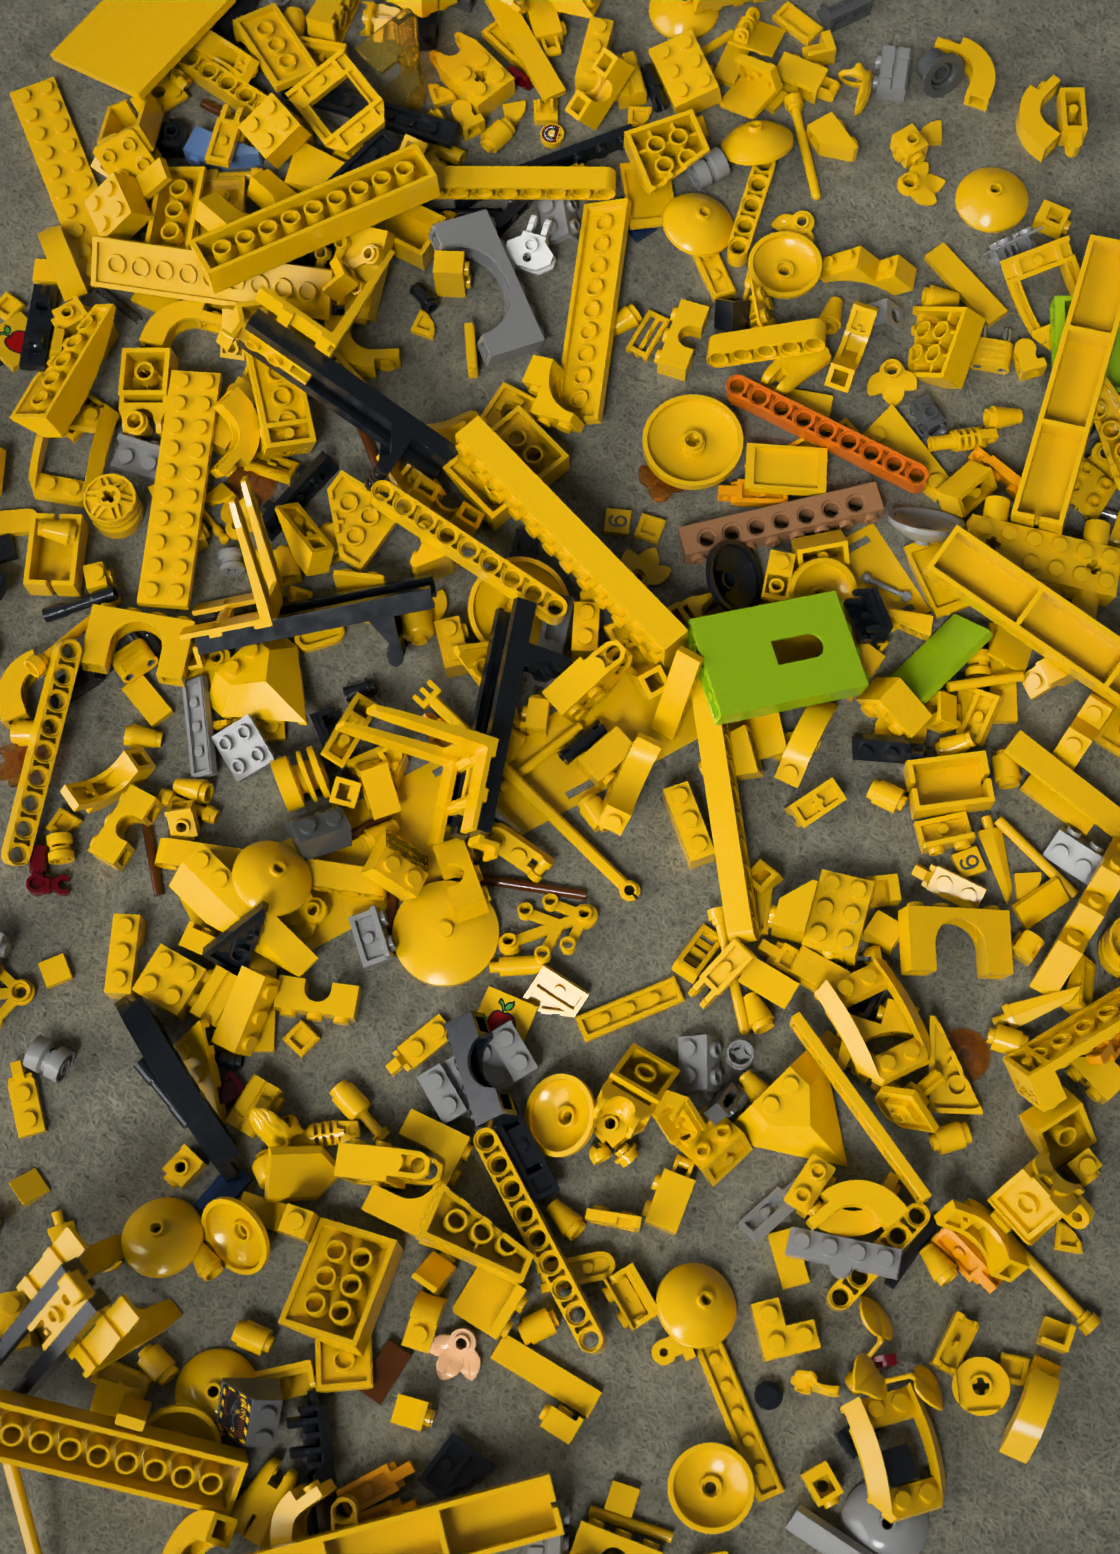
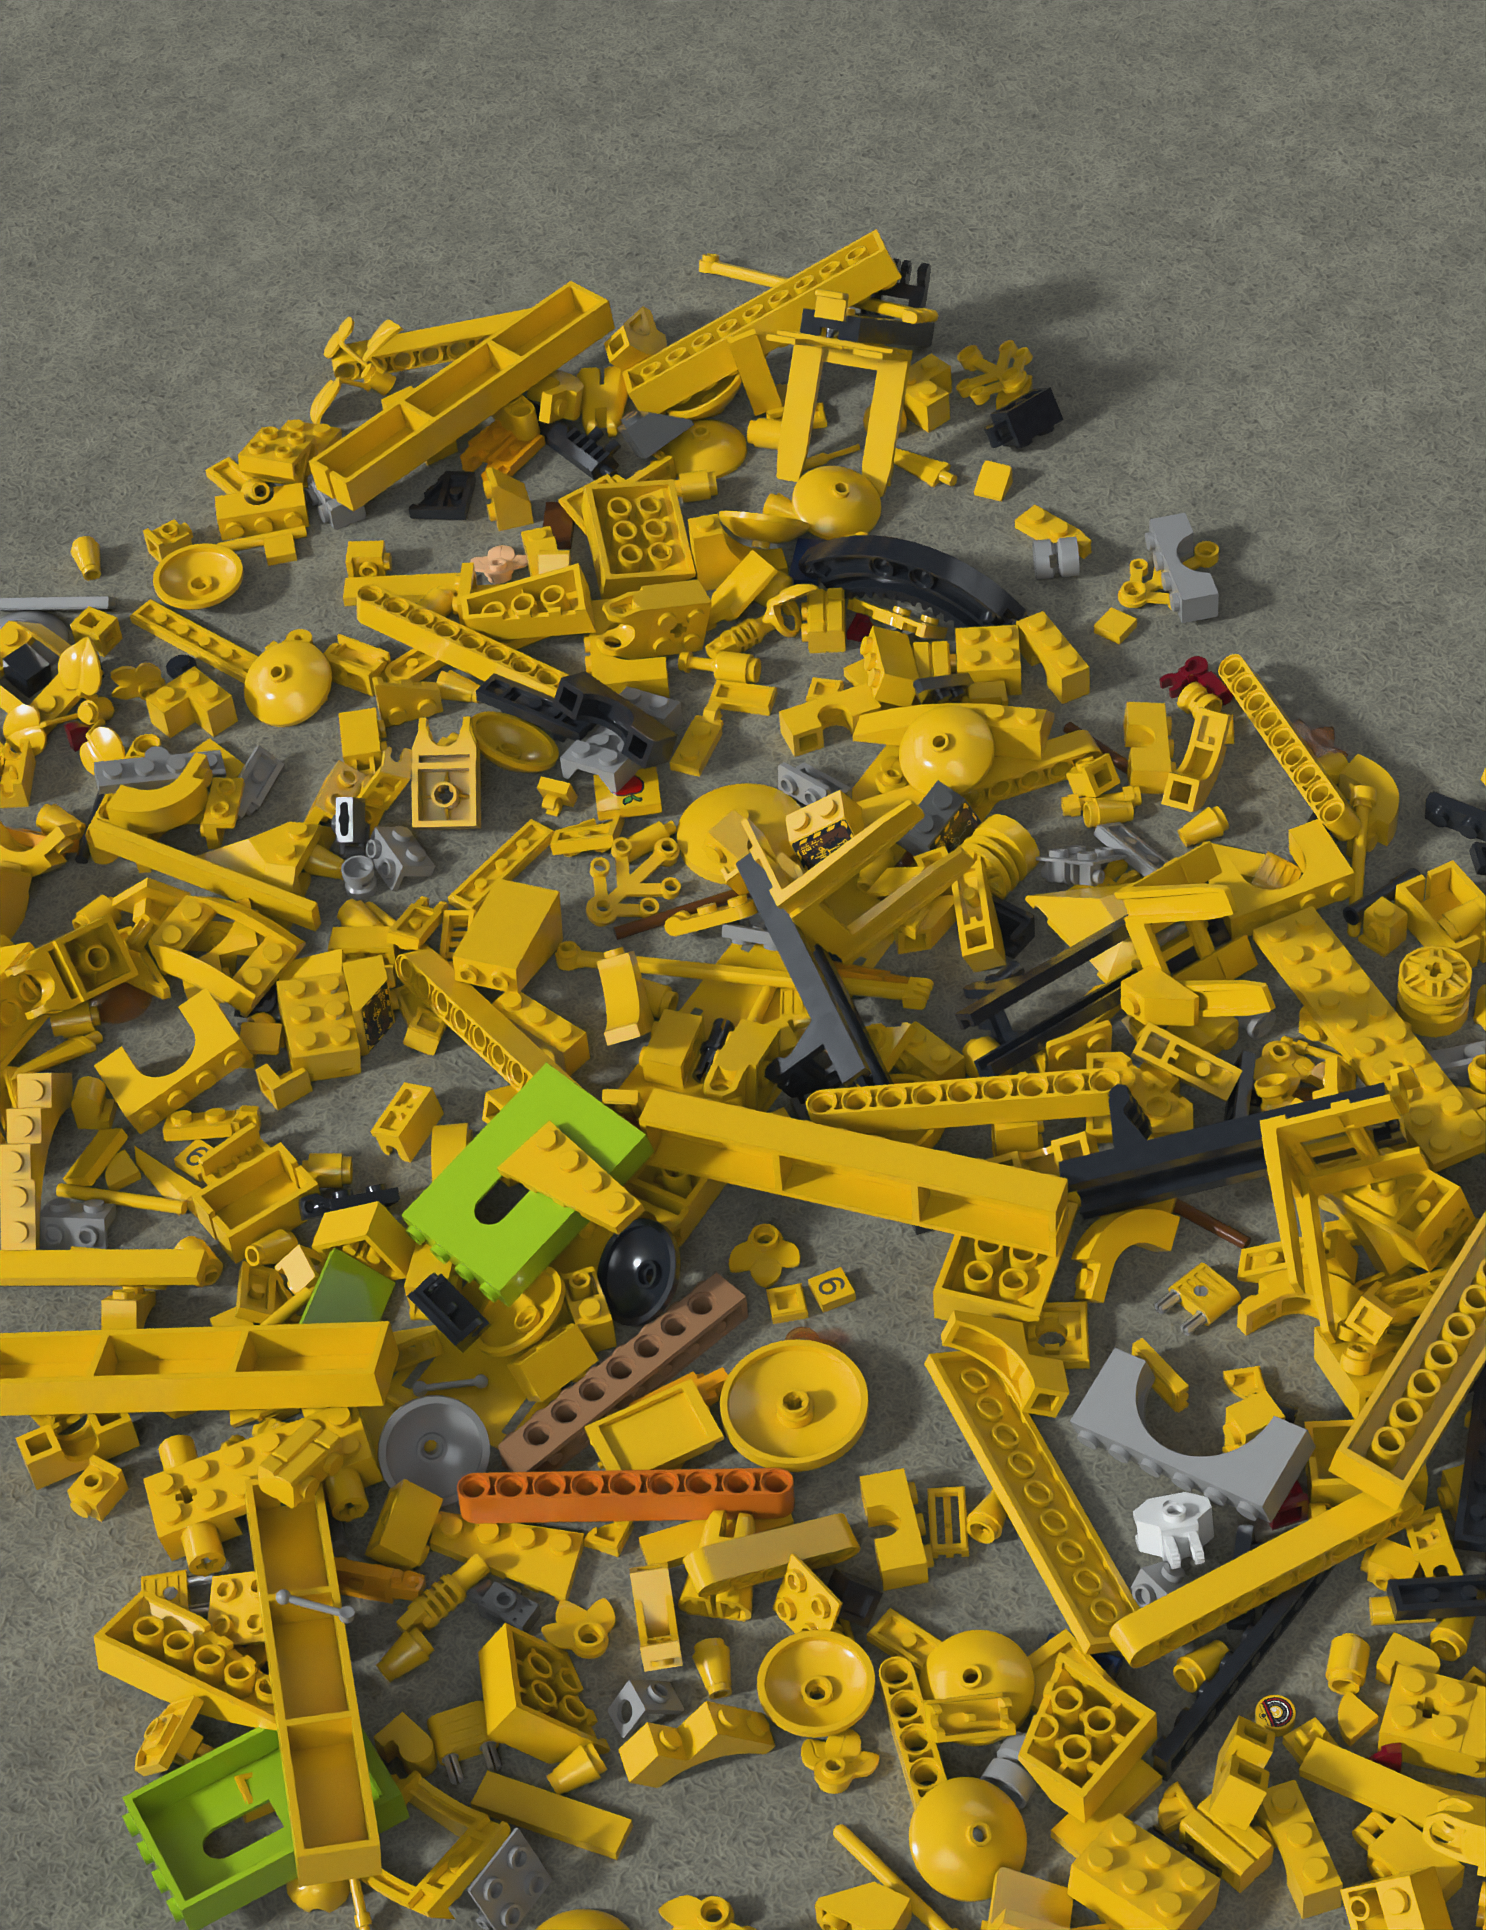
camera: 150 degrees right, 25 degrees down
(263, 488) = (1274, 1091): none -> yellow wheel
(291, 576) = (1159, 999): none -> yellow slope
(362, 1073) = (744, 697): none -> yellow tile
(407, 393) = (1202, 1294): none -> yellow piece
(555, 1050) = (555, 795): none -> yellow tile
(674, 896) = (510, 937): none -> yellow slope
(720, 187) = (968, 1717): none -> yellow hinge
(754, 625) = (565, 1173): none -> yellow wing
(1001, 1048) = (66, 972): none -> yellow brick
(1024, 508) = (301, 1464): none -> yellow brick
(1042, 395) = (346, 1613): none -> light grey hinge

